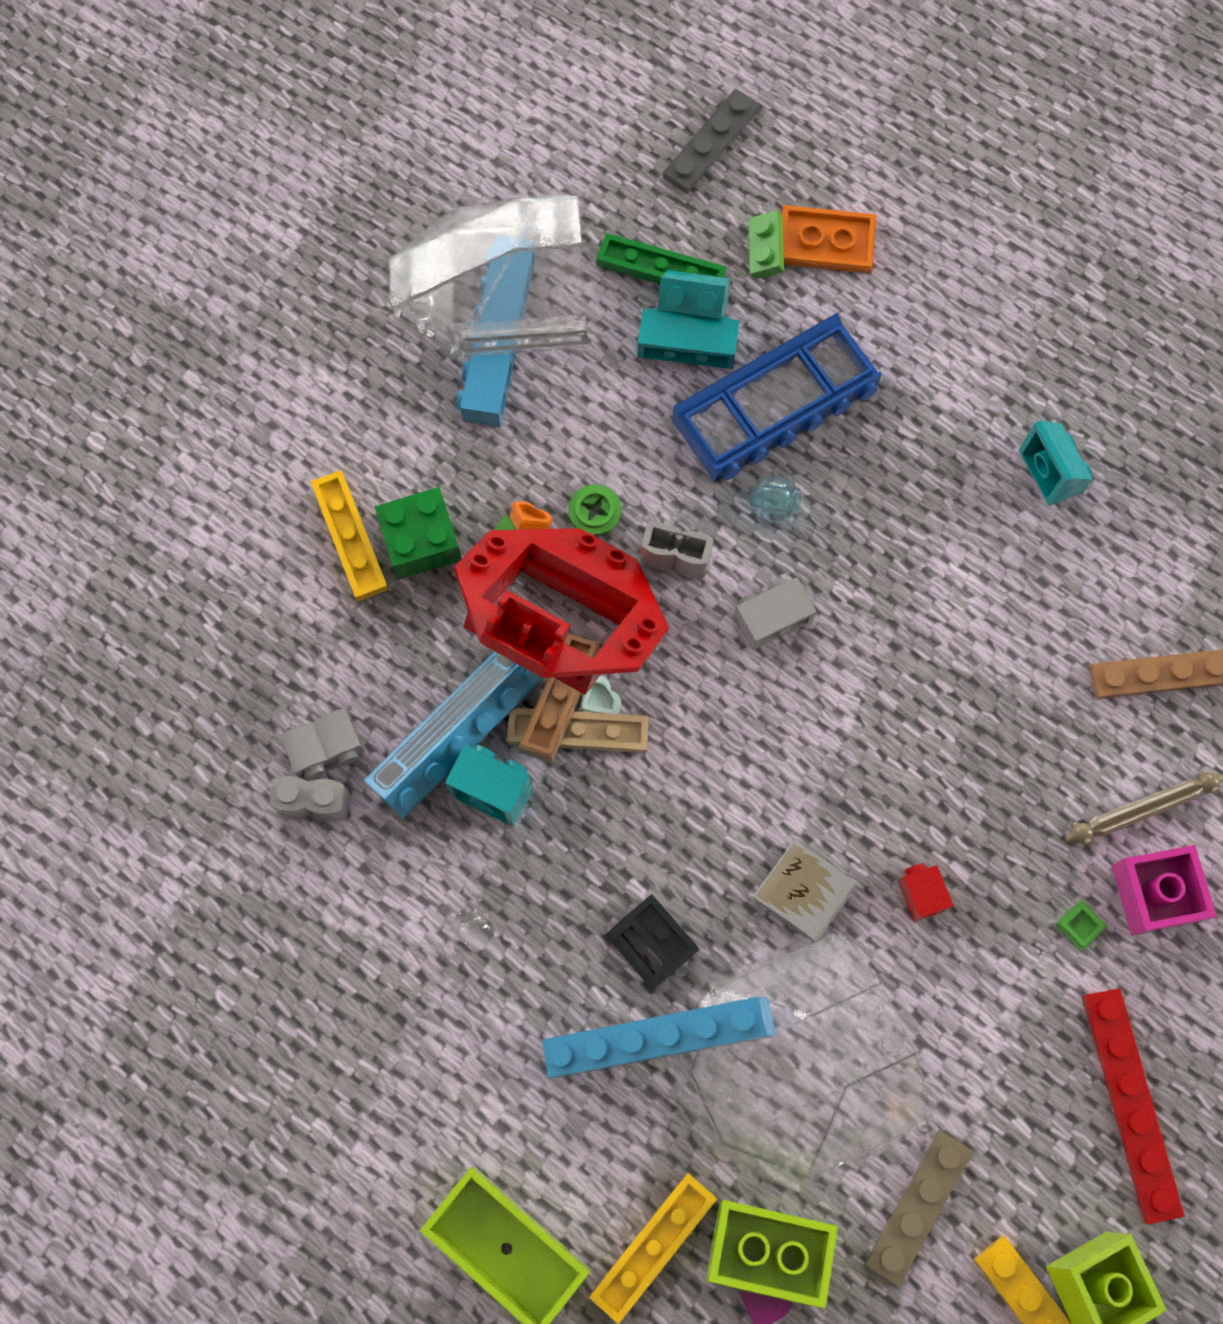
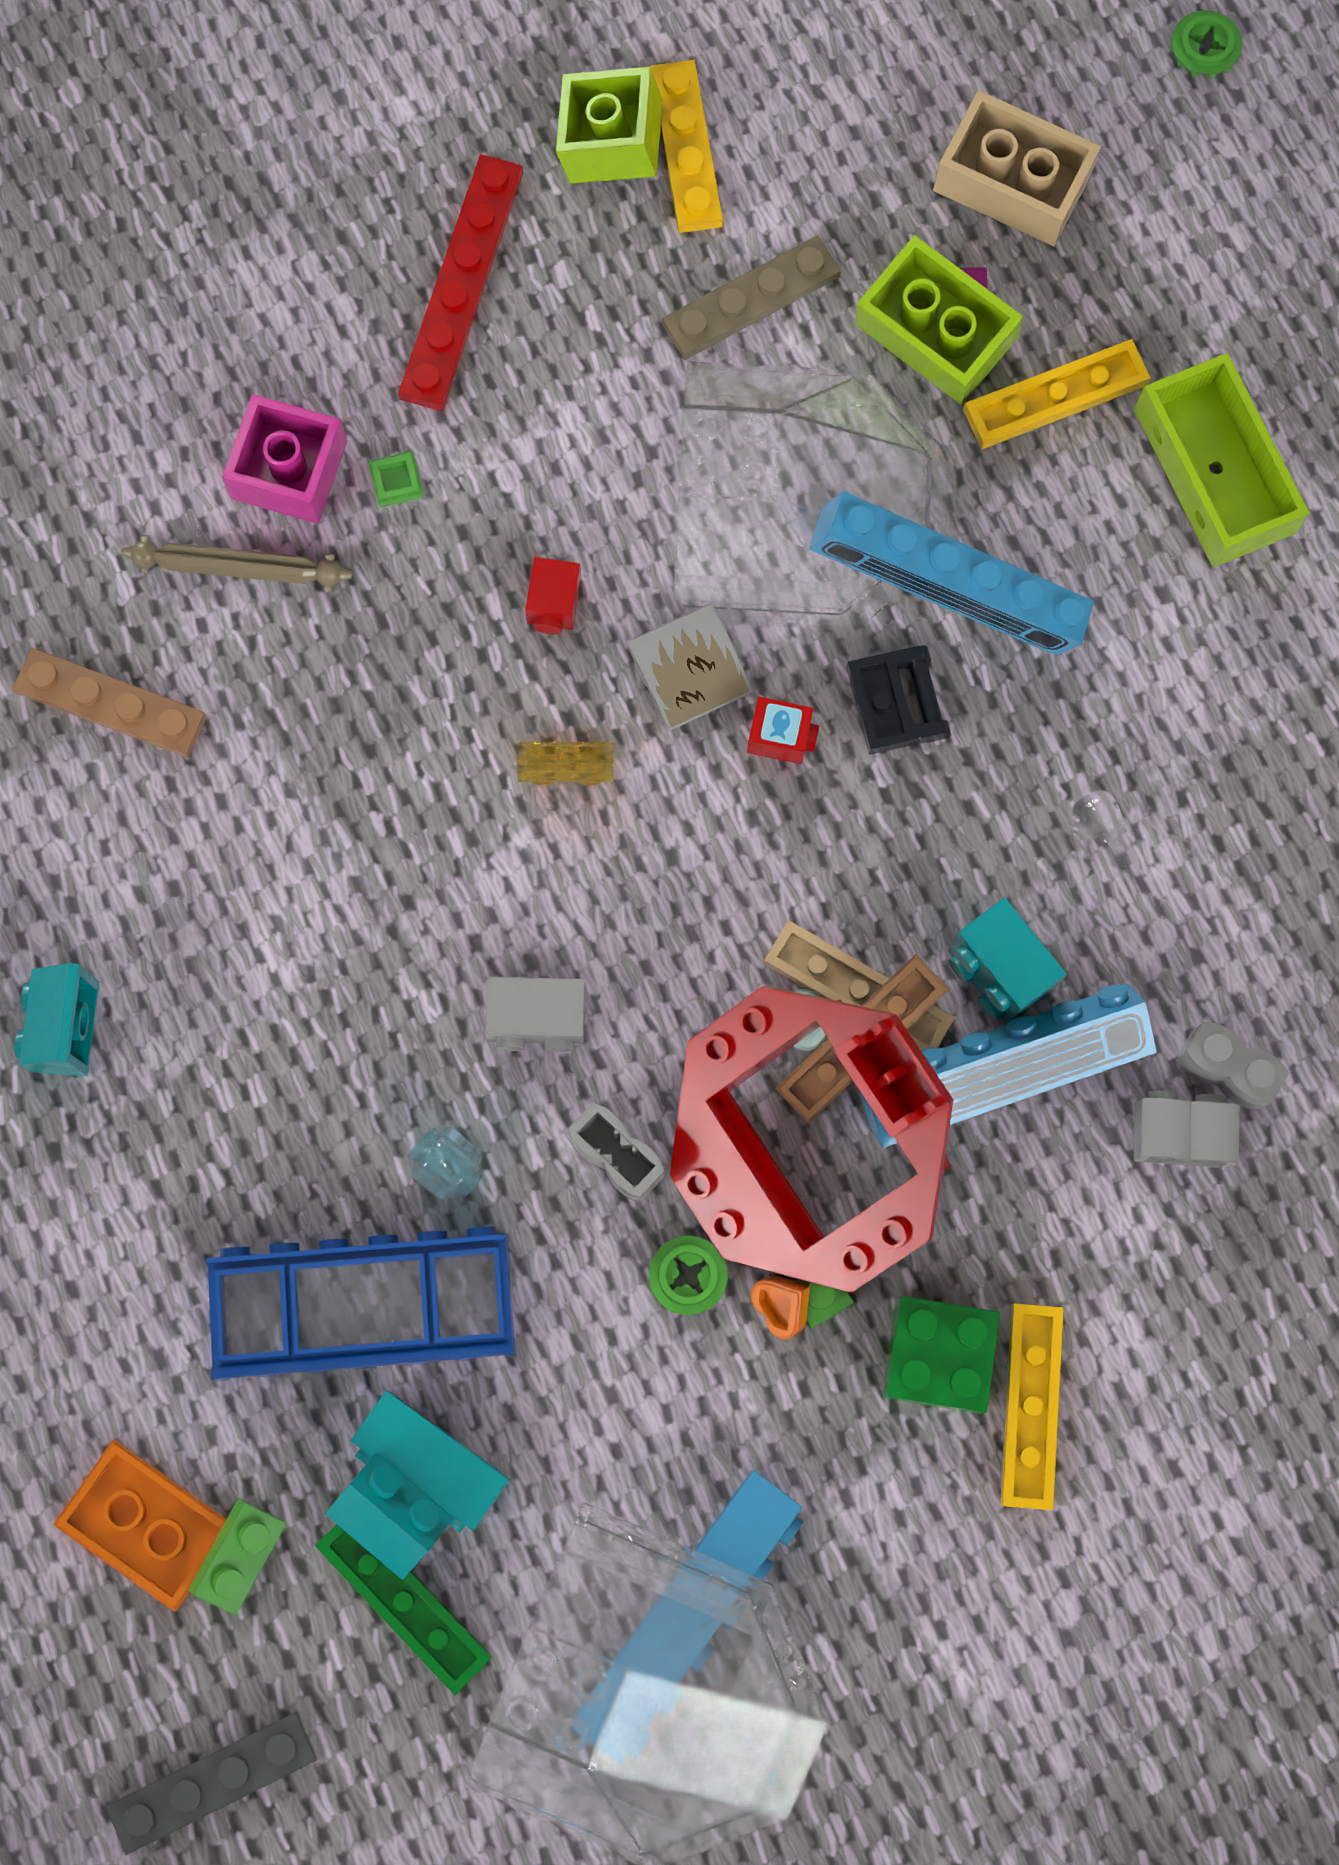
camera: 155 degrees left, 5 degrees up
(718, 876) = (782, 730): none -> red brick
(848, 781) = (565, 762): none -> clear yellow plate

